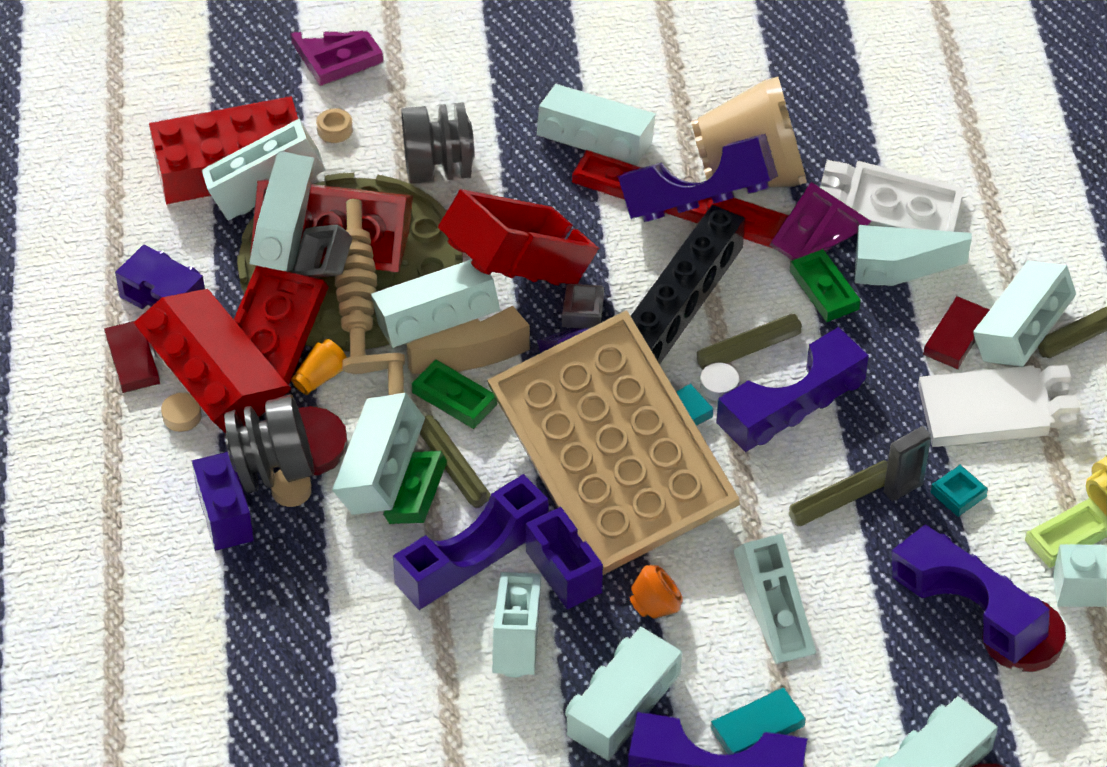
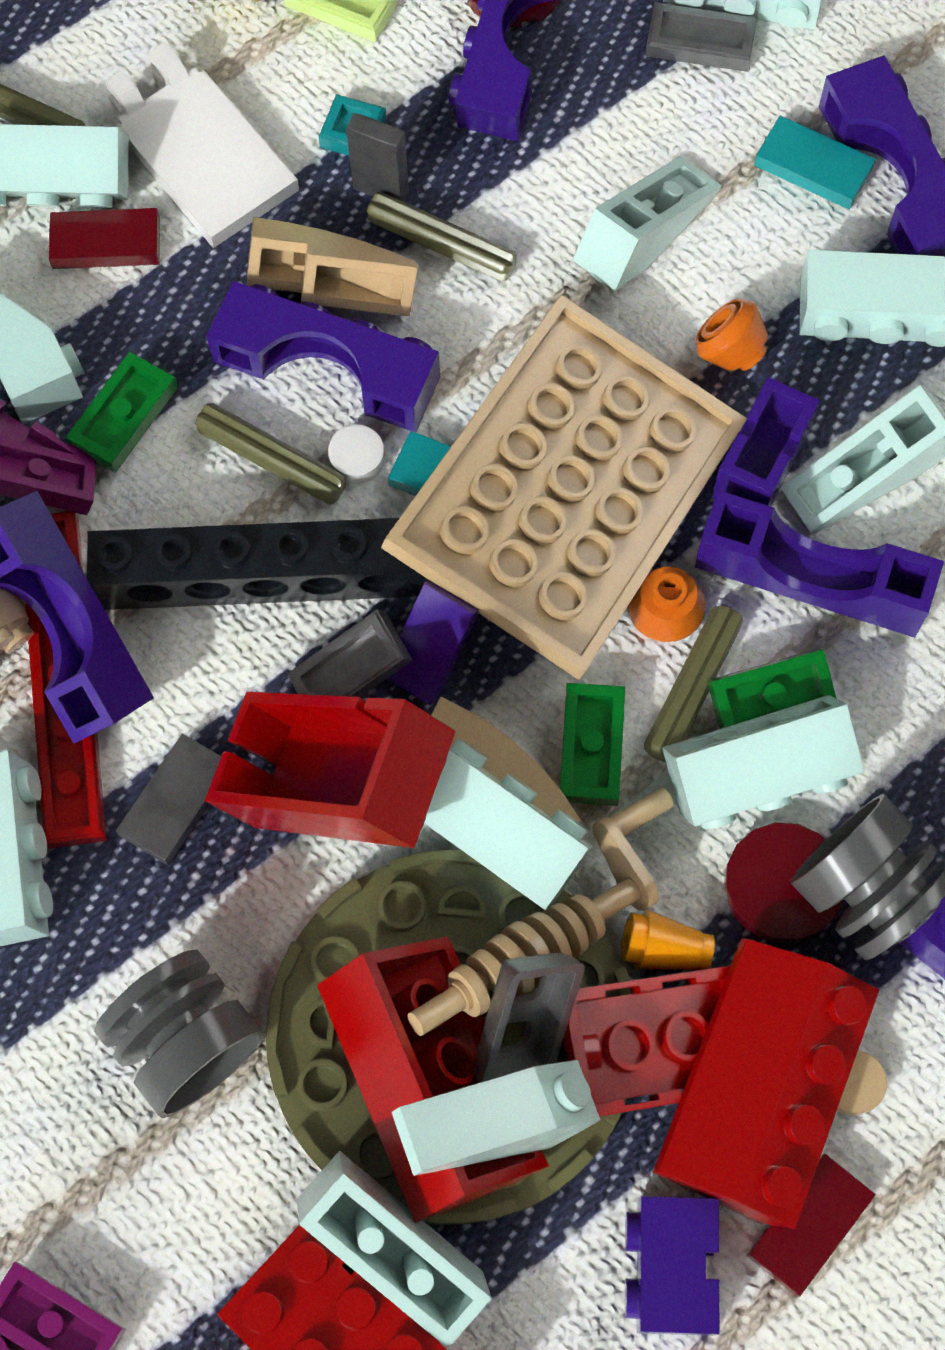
camera: 120 degrees left, 20 degrees up
(334, 125) = (196, 1248): tan tile -> none
(506, 466) = (668, 605): none -> orange cone
(572, 206) = (171, 800): none -> flat silver tile
(854, 410) = (330, 268): none -> tan slope
(901, 715) = (701, 36): none -> flat silver tile

